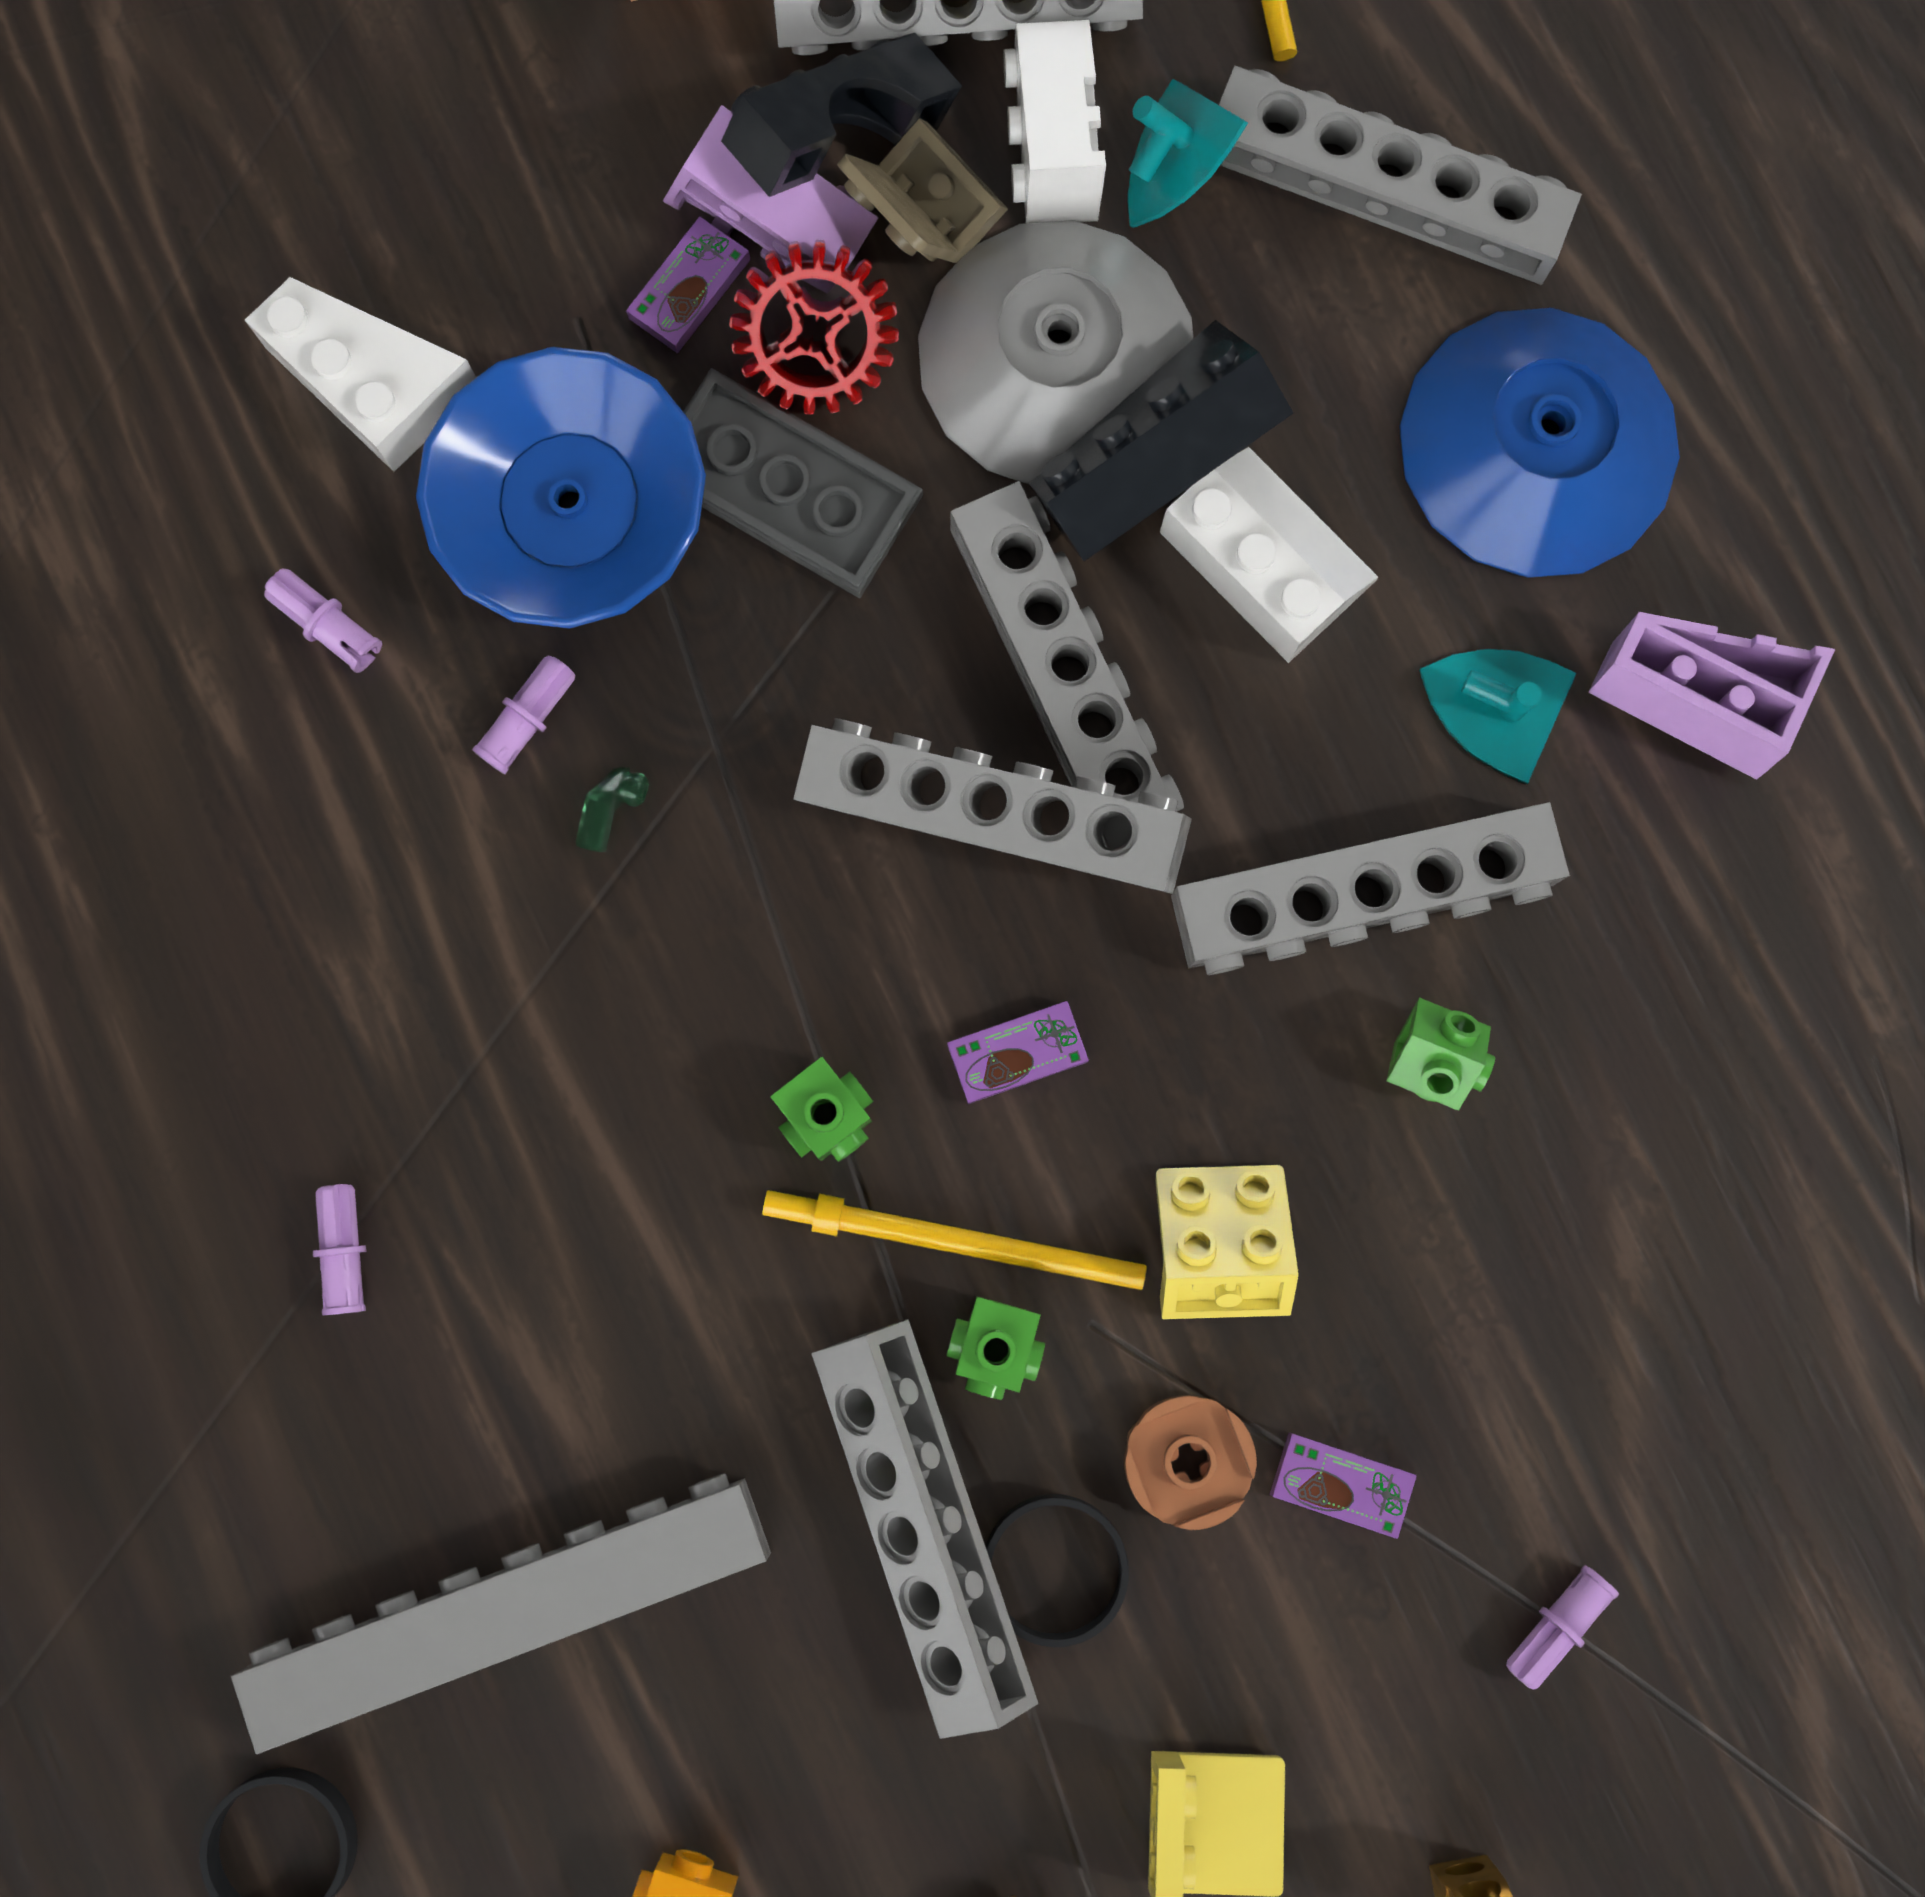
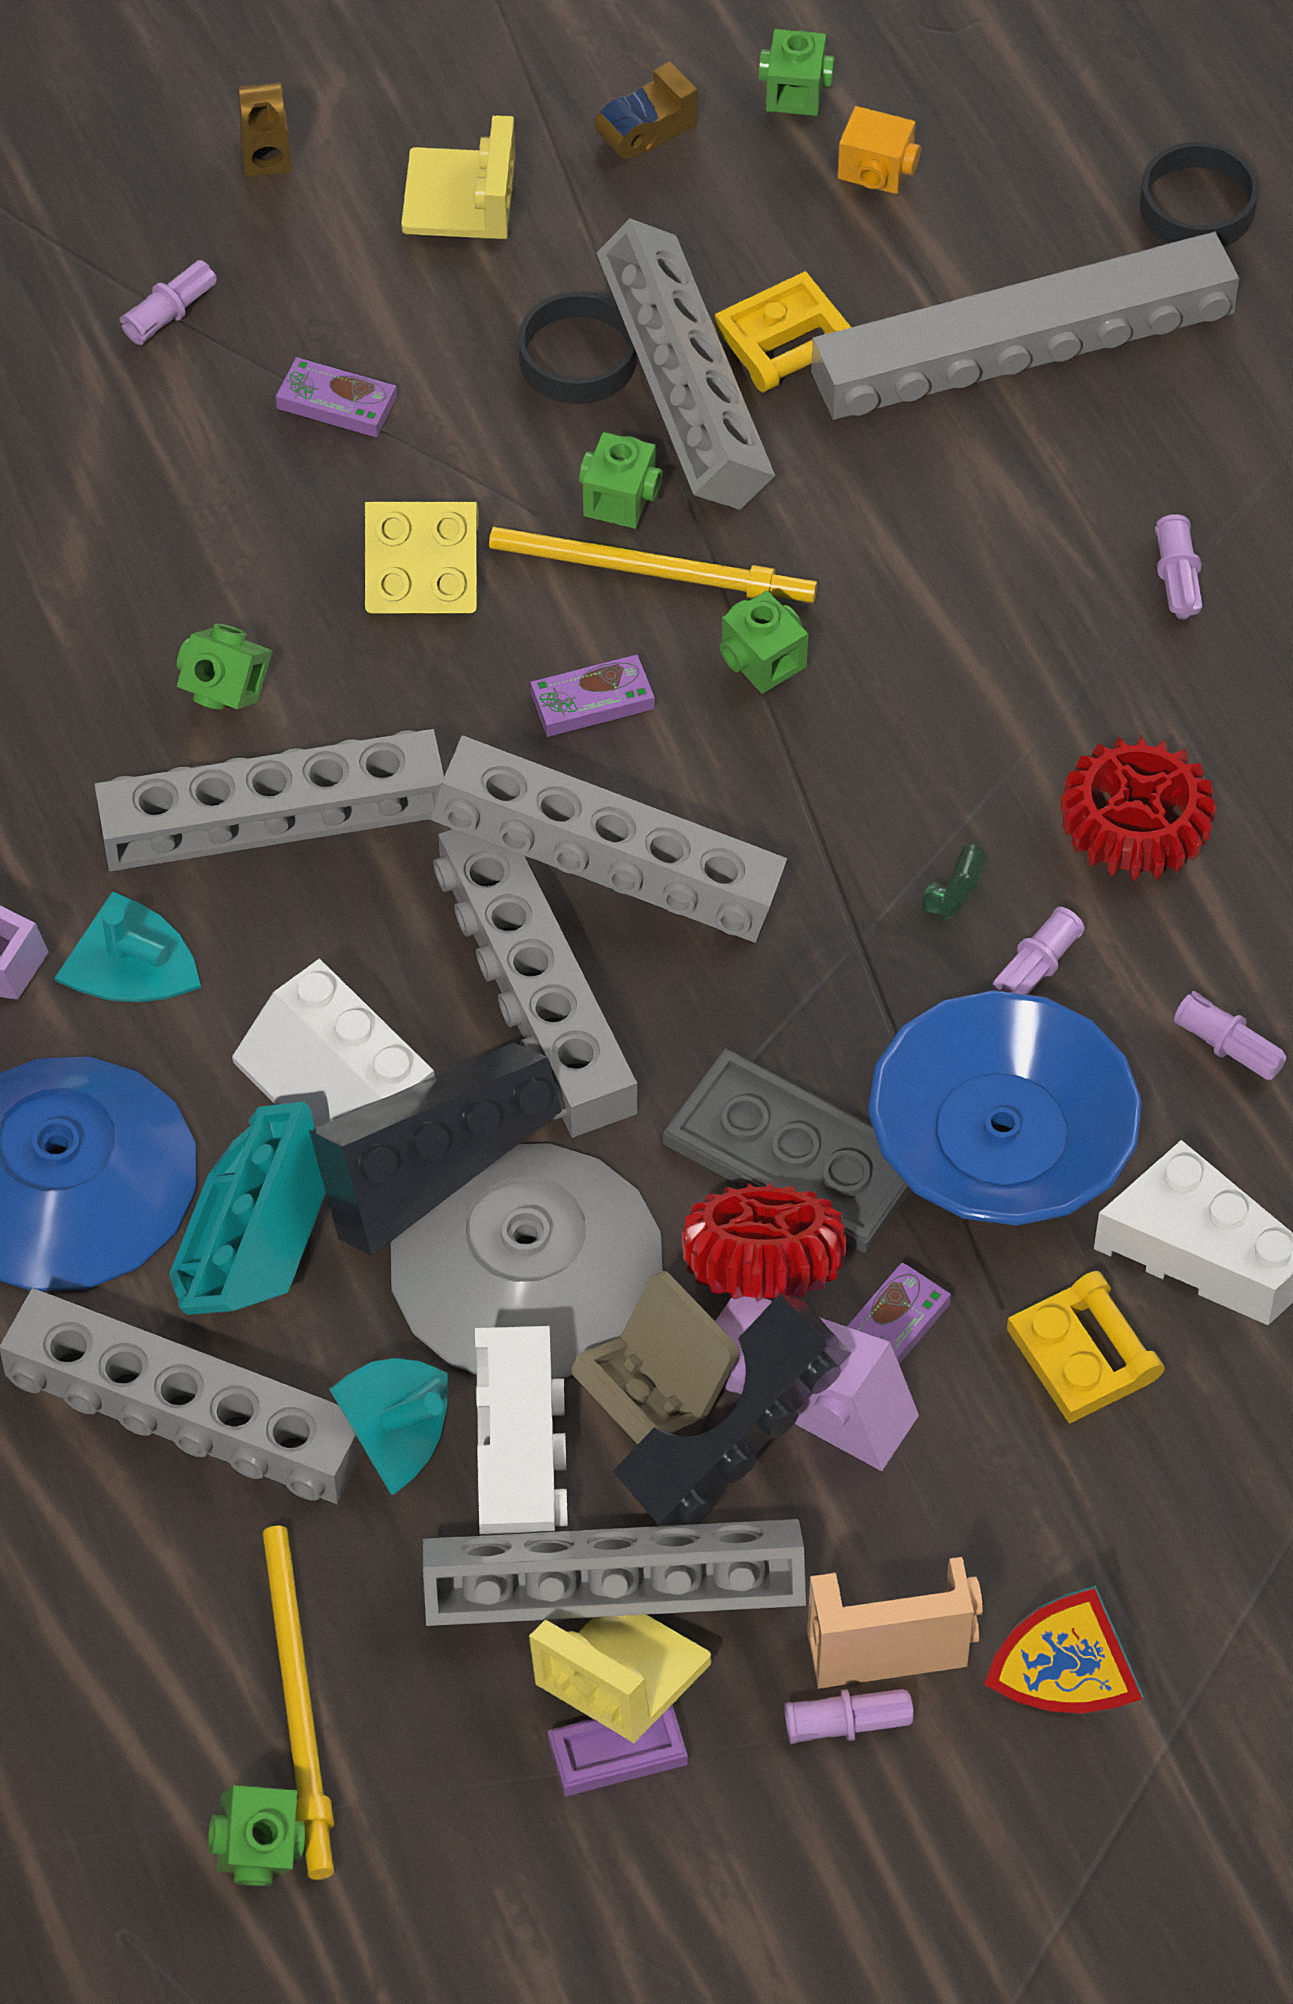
camera: 175 degrees left, 25 degrees down
(429, 888) = (1133, 825): none -> red gear
(510, 254) = (1068, 1357): none -> yellow plate
(815, 1618) = (773, 320): none -> yellow plate
(1223, 1478) = (467, 436): nougat plate -> none
(1348, 344) = (252, 1215): none -> teal wedge

